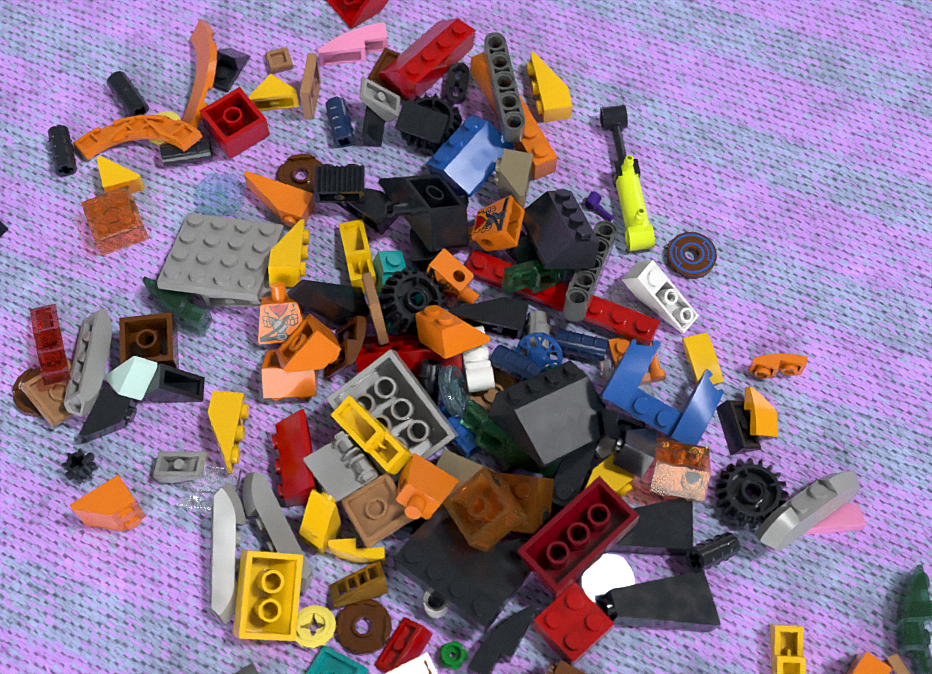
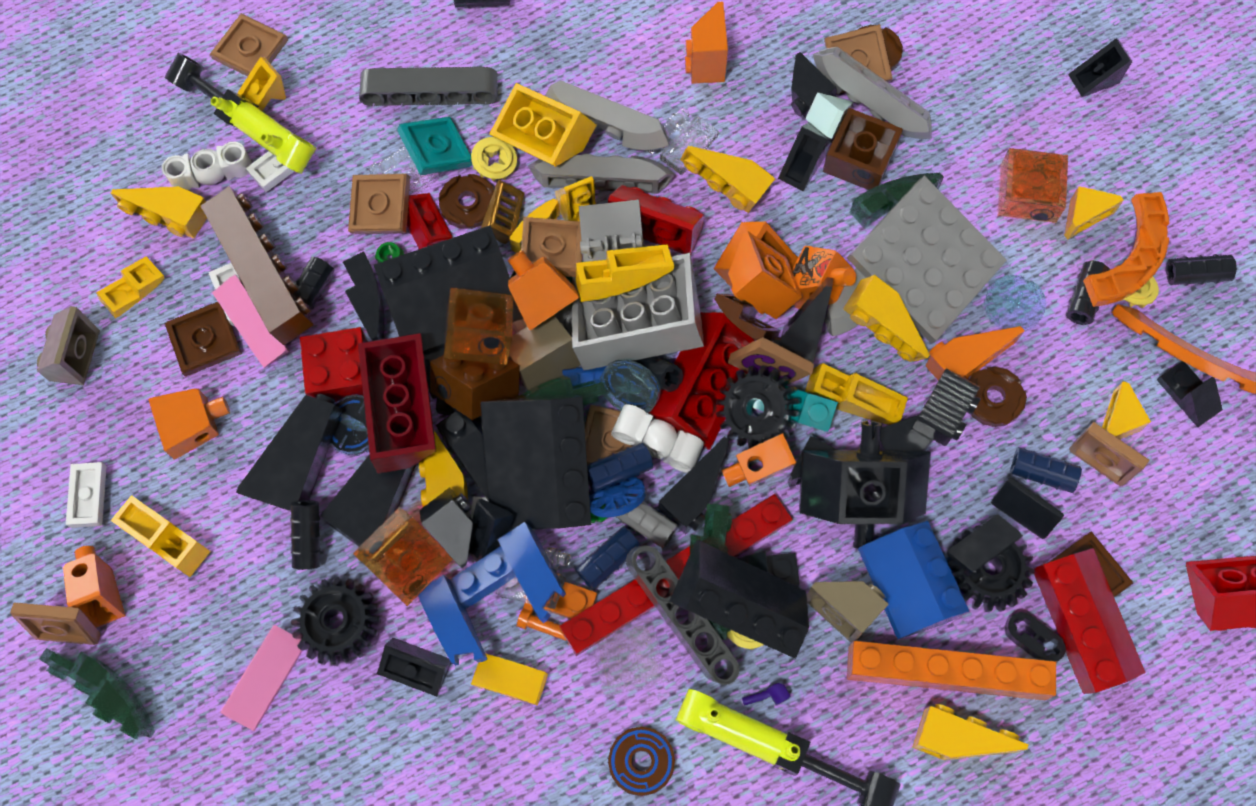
camera: 125 degrees right, 5 degrees up
(50, 344) = (915, 70): clear red slope -> none
(62, 150) = (1155, 177): black axle -> none
(83, 472) = (771, 47): black gear -> none
(179, 466) = (716, 119): light grey slope -> none
(234, 122) = (1100, 353): red brick -> none
(279, 60) = (1175, 454): medium nougat tile -> none
(354, 45) = (1152, 547): bright pink slope -> none
(379, 99) = (1050, 520): light grey slope -> none
(446, 332) = (693, 415): orange slope -> none
(498, 225) = (800, 552): orange torso -> none
(504, 87) = (996, 660): dark grey beam -> none
(660, 295) = (607, 676): white slope -> none
(763, 416) = (405, 695): light orange slope -> none
(768, 365) = (453, 745): orange slope -> none
(808, 509) = (275, 662): light grey brick -> none

